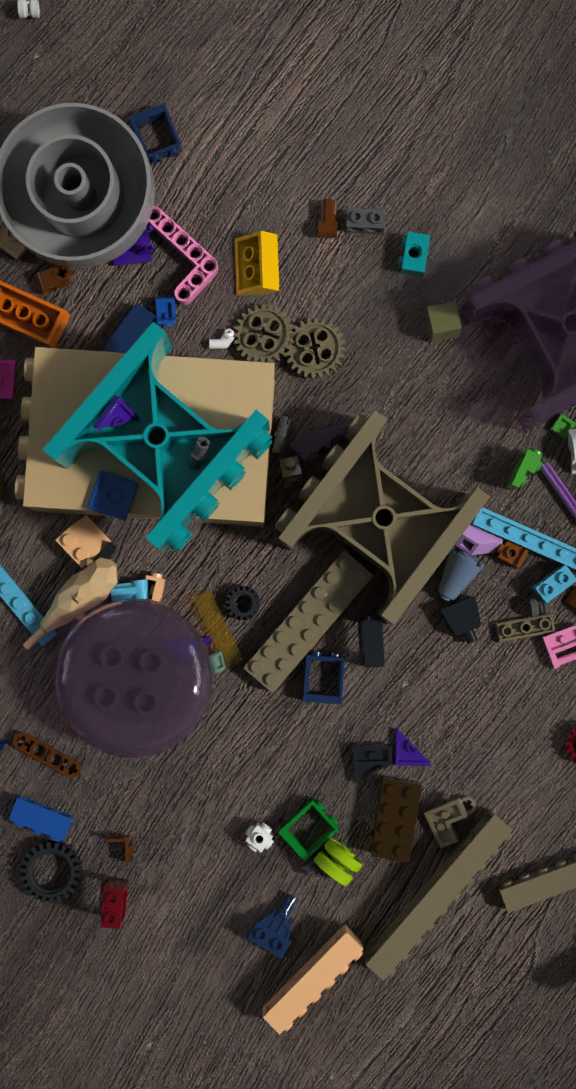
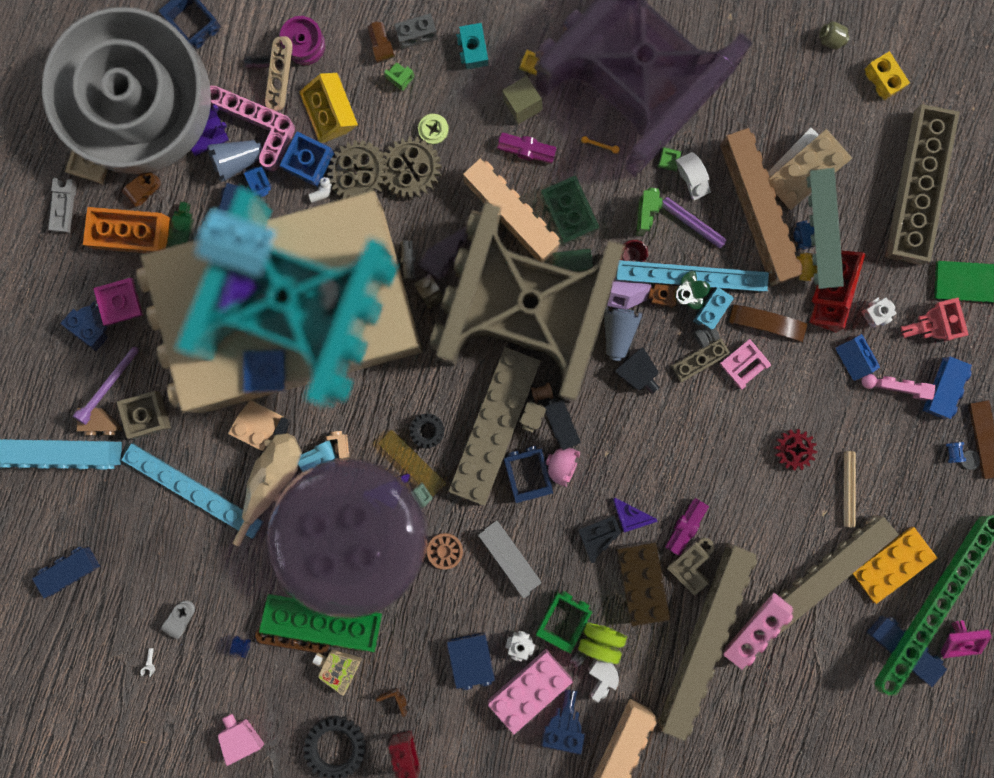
camera: 10 degrees left, 0 degrees up
(41, 818) = (307, 701): blue brick -> none
(56, 738) = (291, 620): none -> green plate
(76, 329) = (180, 226): none -> dark green hinge
(79, 798) = (337, 669): none -> torso
(132, 372) = (235, 242): none -> medium azure slope
(151, 280) = (233, 157): none -> sand blue cone
(208, 835) = (471, 661): none -> dark blue brick
(210, 198) = (259, 61): none -> black axle
(219, 215) = (275, 73): none -> tan beam
(219, 306) = (307, 159): none -> blue brick
(219, 723) = (444, 551): none -> nougat wheel
(245, 187) = (306, 39): none -> magenta wheel
(253, 883) = (529, 691): none -> bright pink brick
(278, 751) = (510, 558): none -> light grey panel
(331, 895) = (607, 677): none -> white brick
(335, 257) = (399, 76): none -> bright green panel
(345, 627) = (532, 417): none -> dark tan brick
(349, 310) = (431, 120): none -> yellowish green gear
(359, 681) = (562, 465): none -> bright pink cylinder
(364, 606) = (542, 393): none -> nougat bush
(398, 429) = (514, 214): none -> light nougat brick
(431, 368) = (527, 148): none -> magenta piece
(437, 492) = (573, 261): none -> clear green hinge
(450, 442) = (569, 210): none -> clear green brick
(456, 780) = (687, 526): none -> magenta piece
(461, 288) = (528, 62): none -> yellow tile
(499, 503) = (634, 251): none -> dark red hair
(511, 885) = (772, 607): none -> bright pink brick
(514, 399) = (615, 149): none -> light orange hinge
(542, 559) = (695, 291): none -> dark green plate

